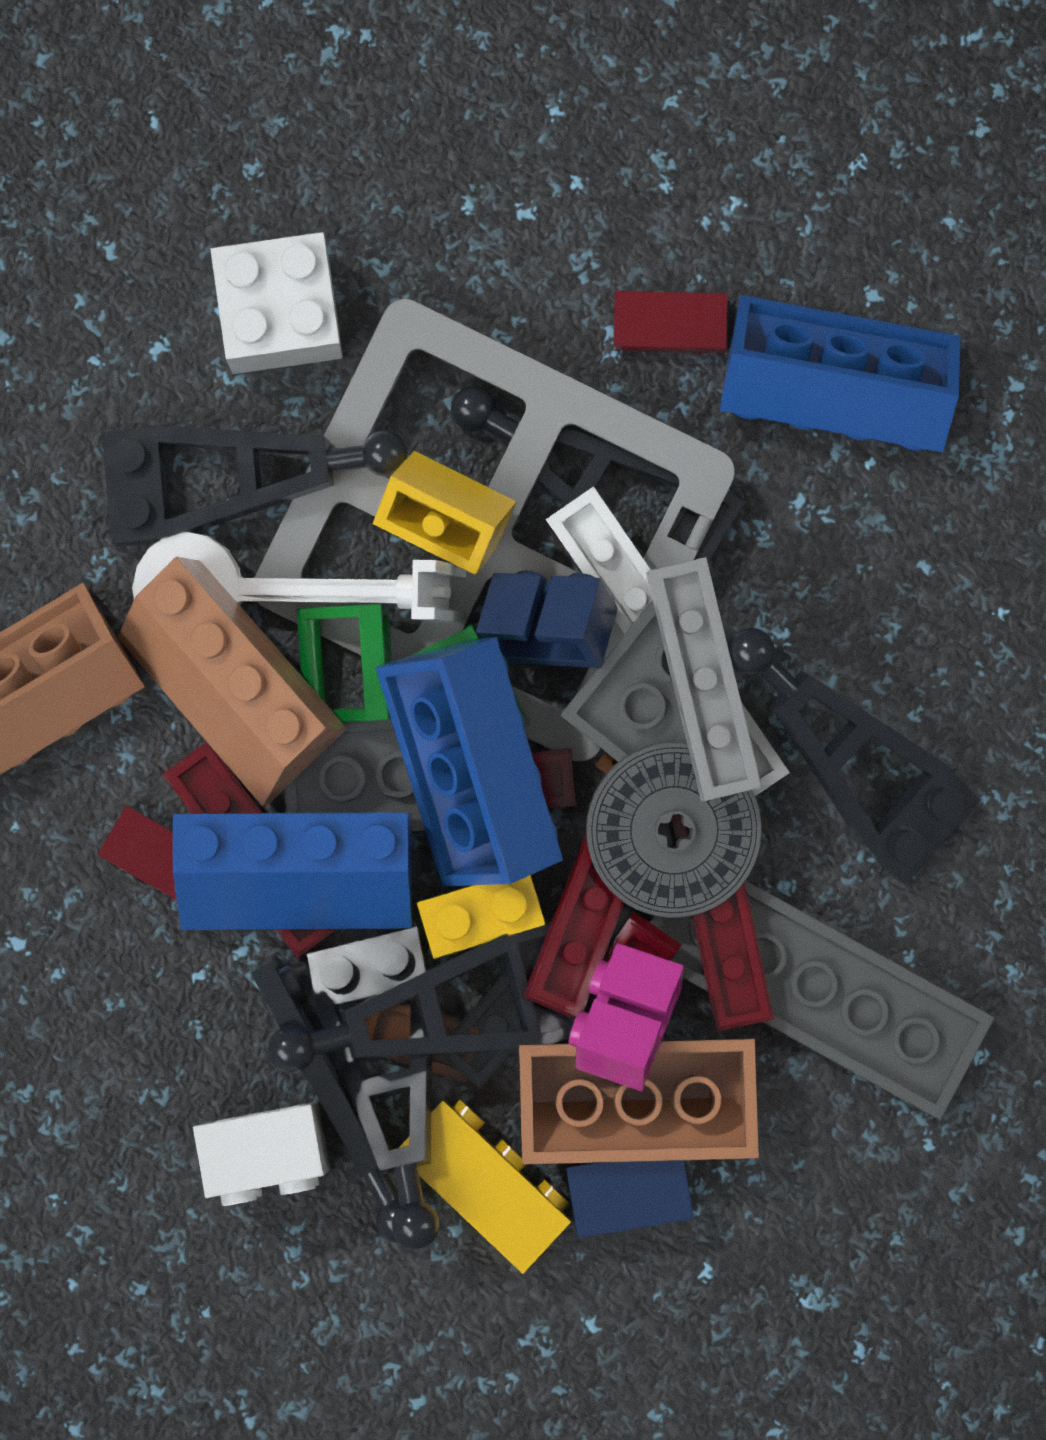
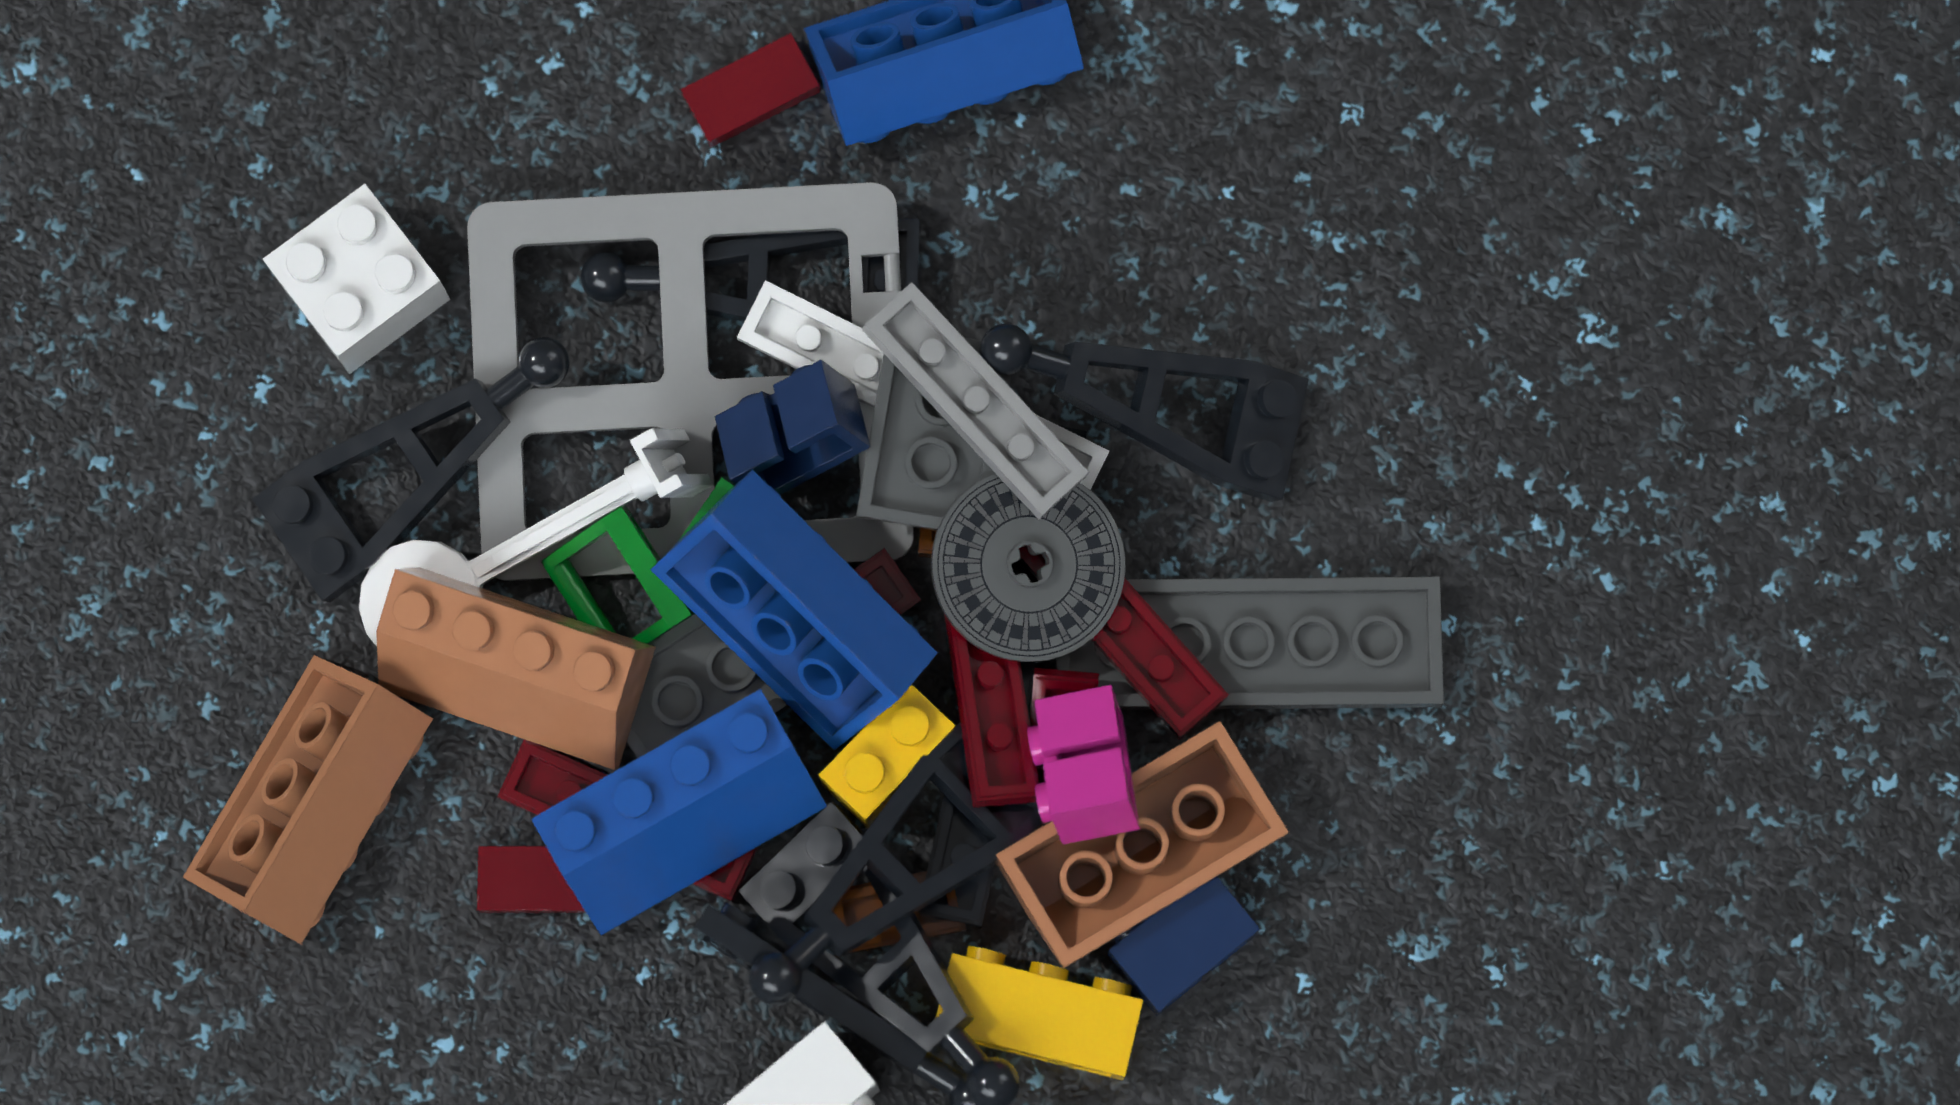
camera: 25 degrees left, 5 degrees down
(444, 512) = (634, 384): yellow brick -> none

